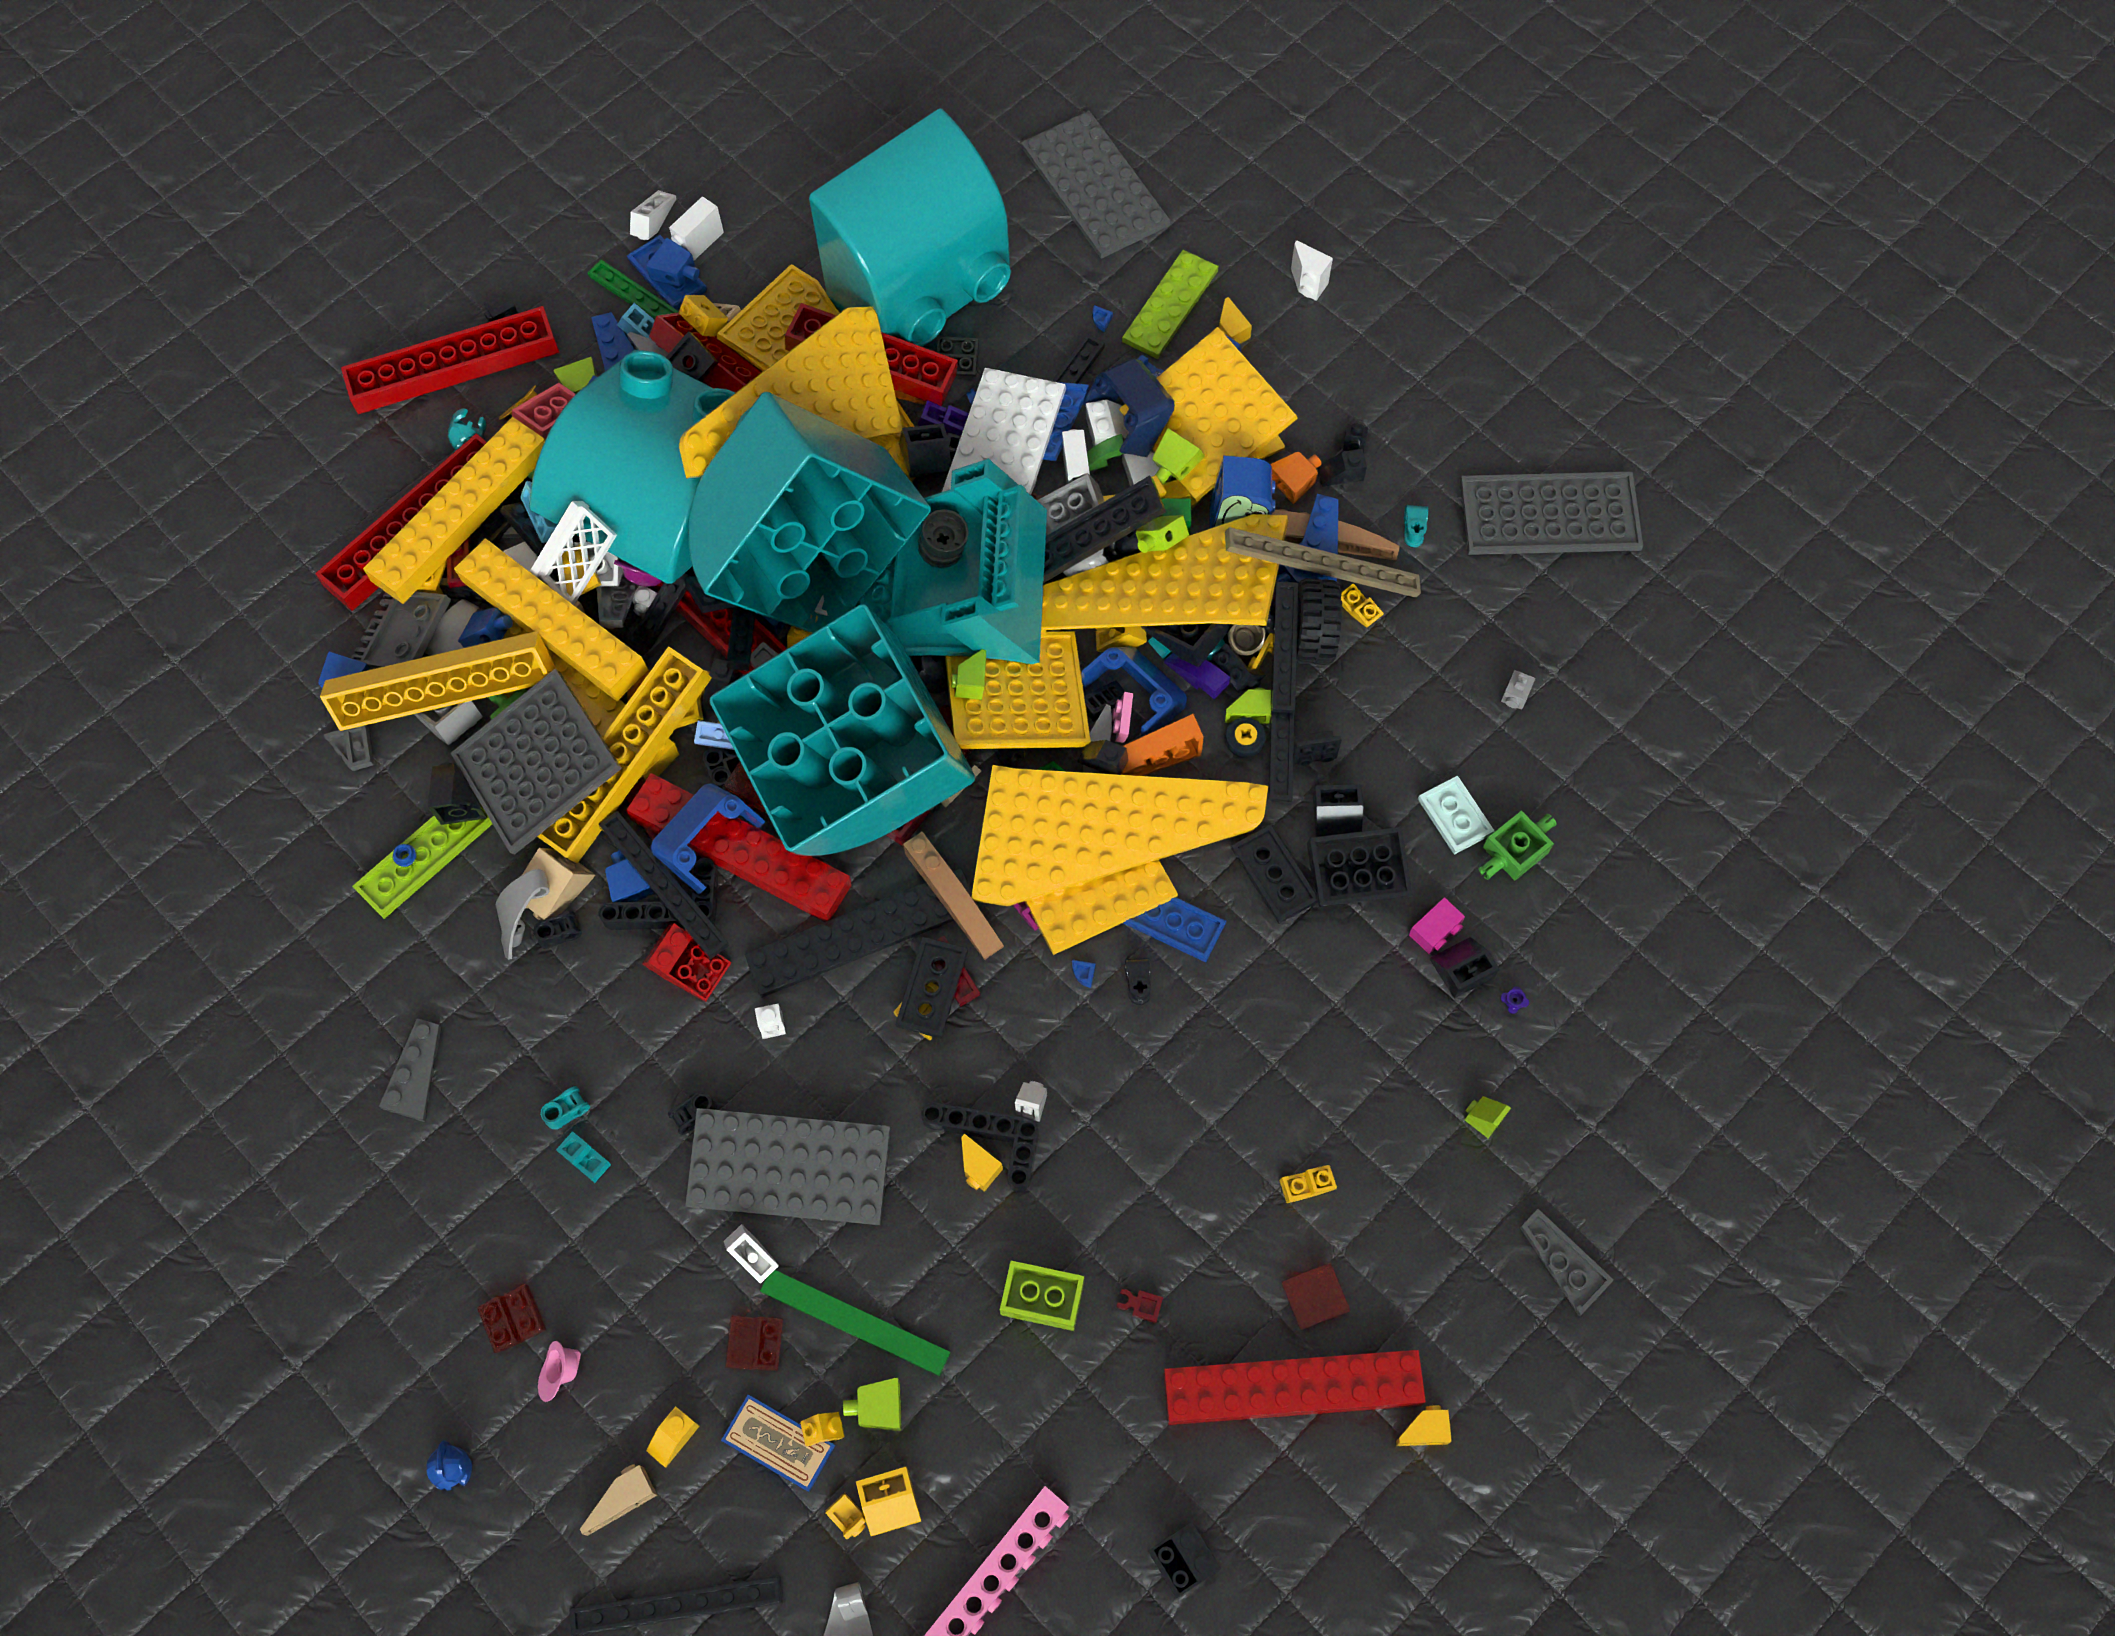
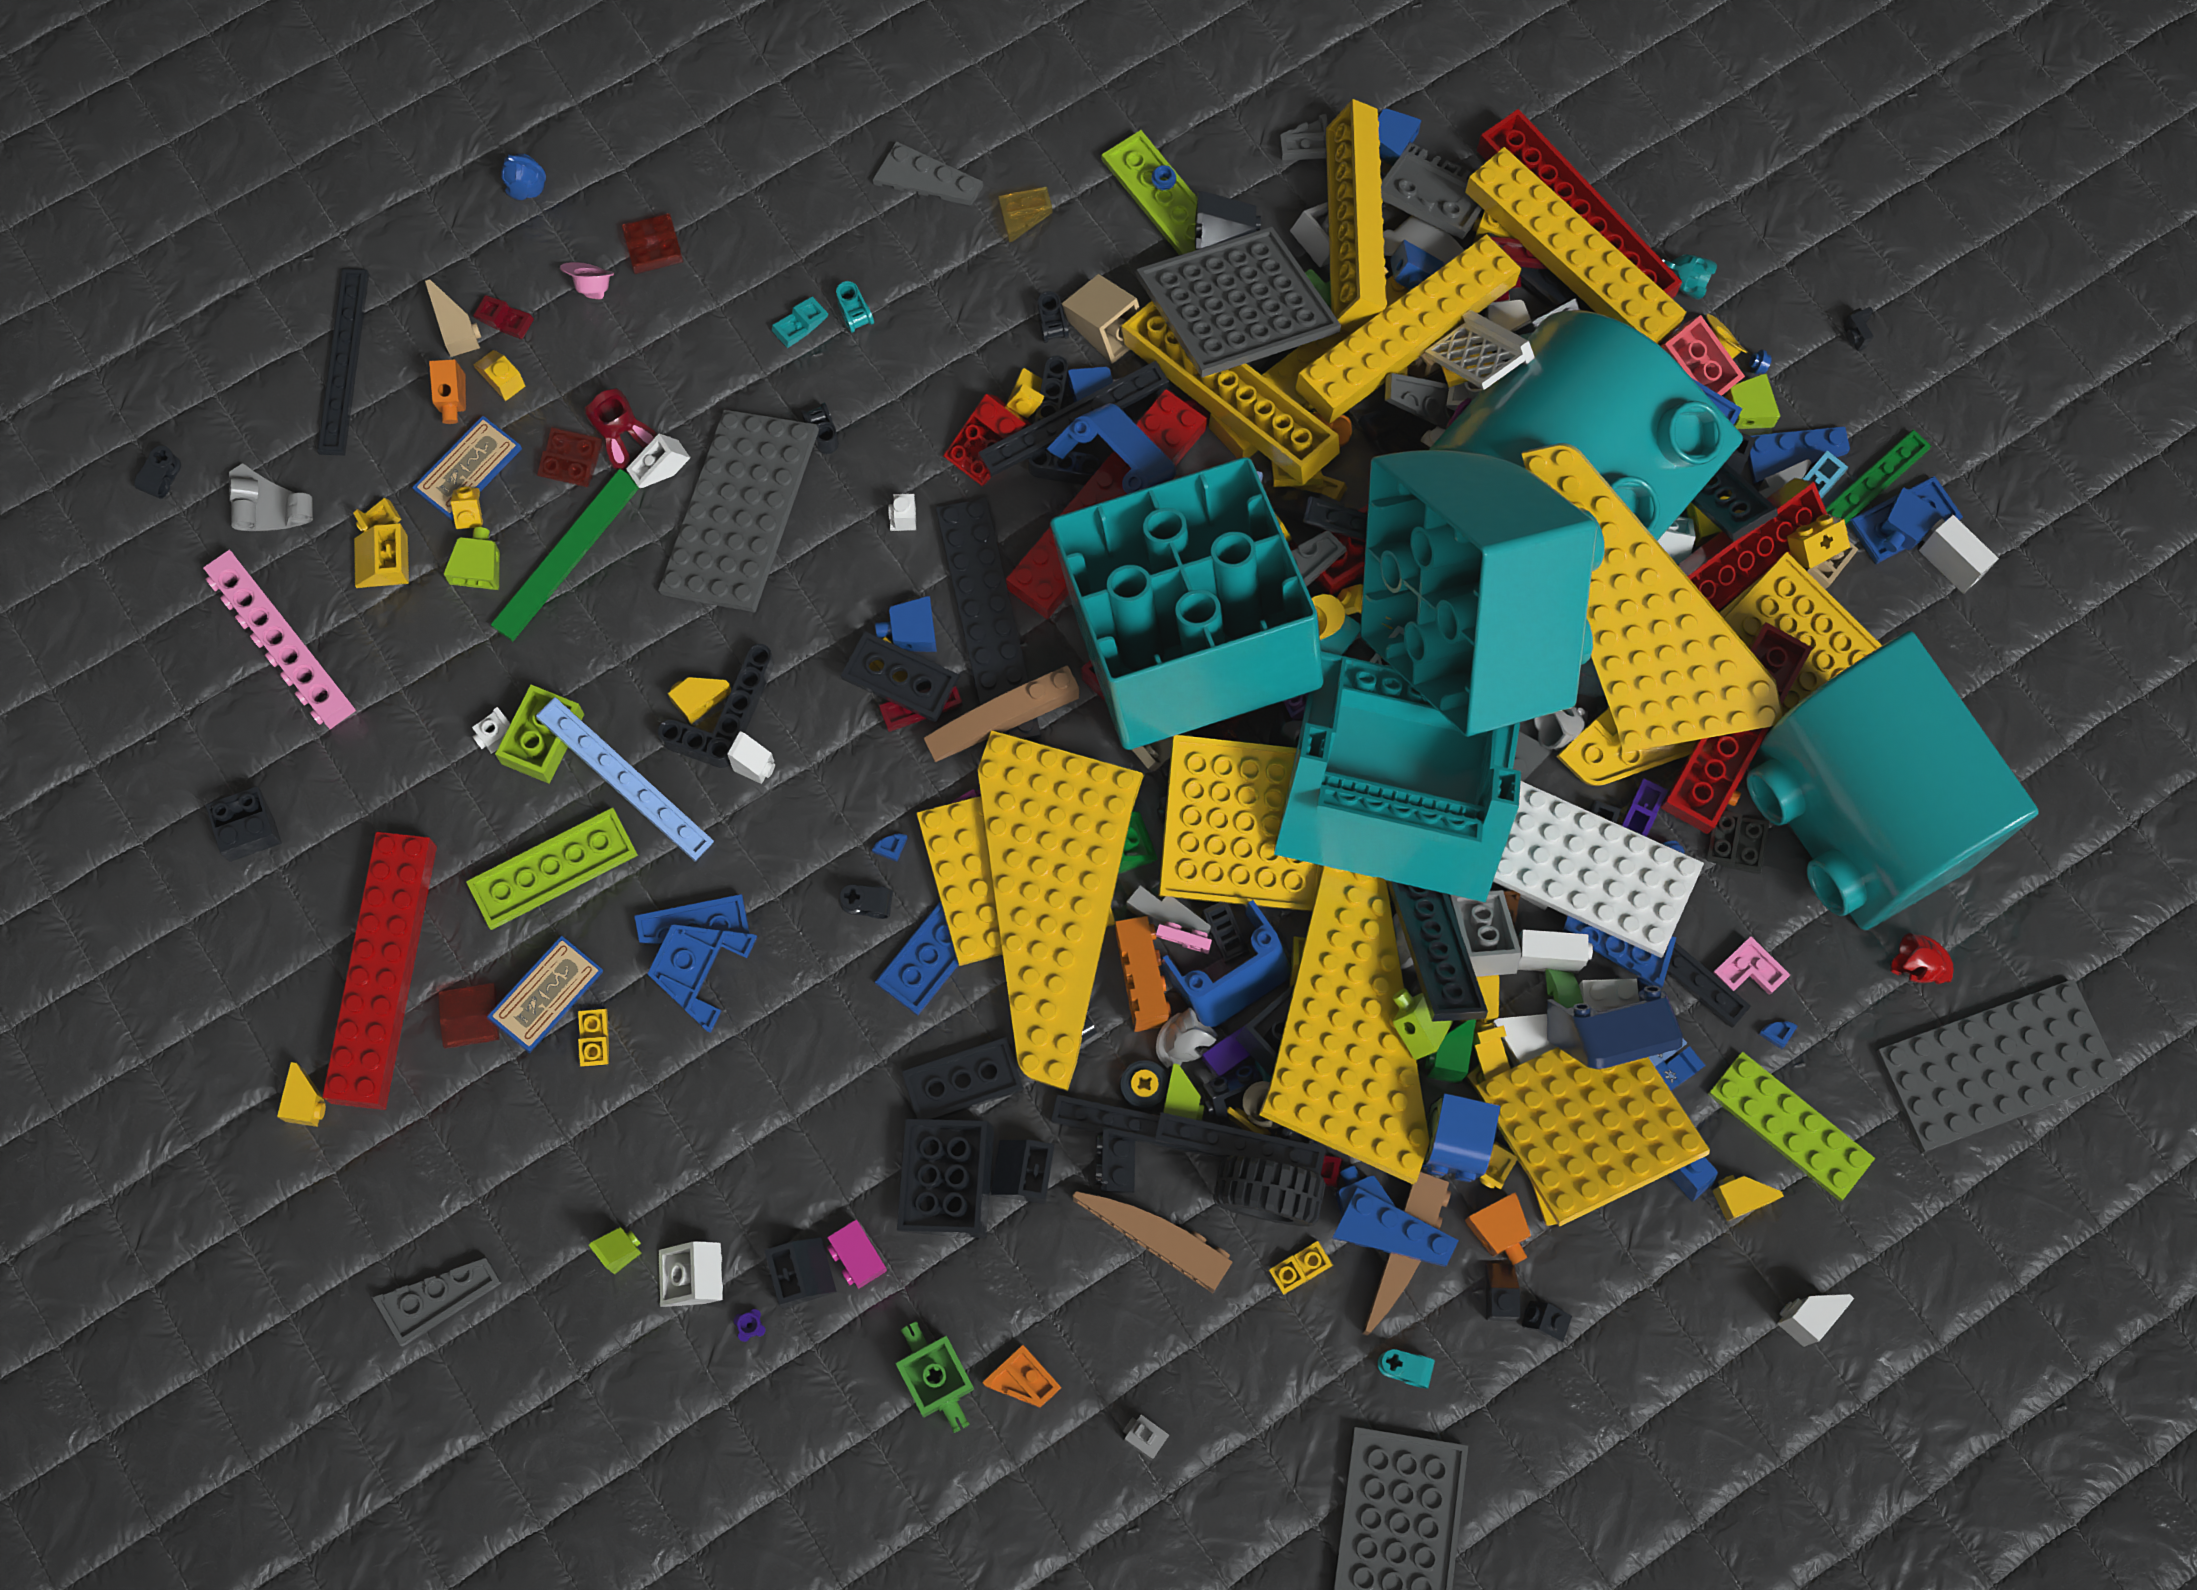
camera: 95 degrees right, 5 degrees up
(445, 975) = (1024, 210): none -> clear yellow wing
(449, 360) = (1796, 269): red brick -> none
(512, 904) = (1084, 274): light grey panel -> none
(540, 379) = (1760, 362): none -> blue plate
(609, 1449) = (503, 318): none -> dark red slope
(643, 937) = (1026, 394): none -> yellow bracket
(650, 215) = (1990, 506): white slope -> none
(690, 1482) = (448, 389): none -> orange torso
(709, 1306) = (611, 417): none -> dark red piece
(879, 992) = (910, 626): none -> blue torso
(925, 450) = (1589, 773): black slope -> none
(943, 538) = (1451, 745): pearl dark grey wheel -> none
(970, 677) = (1259, 766): lime slope -> none
(1028, 231) = (1923, 960): none -> red helmet
(1035, 1339) = (493, 739): none -> white brick
(1052, 337) = (1755, 962): none -> bright pink plate
(1071, 1207) = (624, 779): none -> light blue tile
(1104, 757) = (1135, 906): black slope -> none
(1145, 1305) = (507, 837): dark red plate -> none
(1165, 1257) = (551, 868): none -> lime plate
(1175, 457) = (1530, 1065): lime torso -> none
(1186, 1110) = (717, 914): none -> blue wing
(1205, 709) = (1181, 1039): none -> light grey helmet
(1226, 1114) = (686, 961): none -> blue wing
(1282, 1231) = (545, 994): none -> tile
(1321, 562) = (1343, 1213): dark tan plate -> none
(1366, 698) = (1163, 1239): none -> medium nougat slope
(1455, 815) = (994, 1315): light aqua plate -> none
(1489, 1053) = (690, 1274): none -> white slope
(1498, 784) = (1023, 1379): none -> orange wing

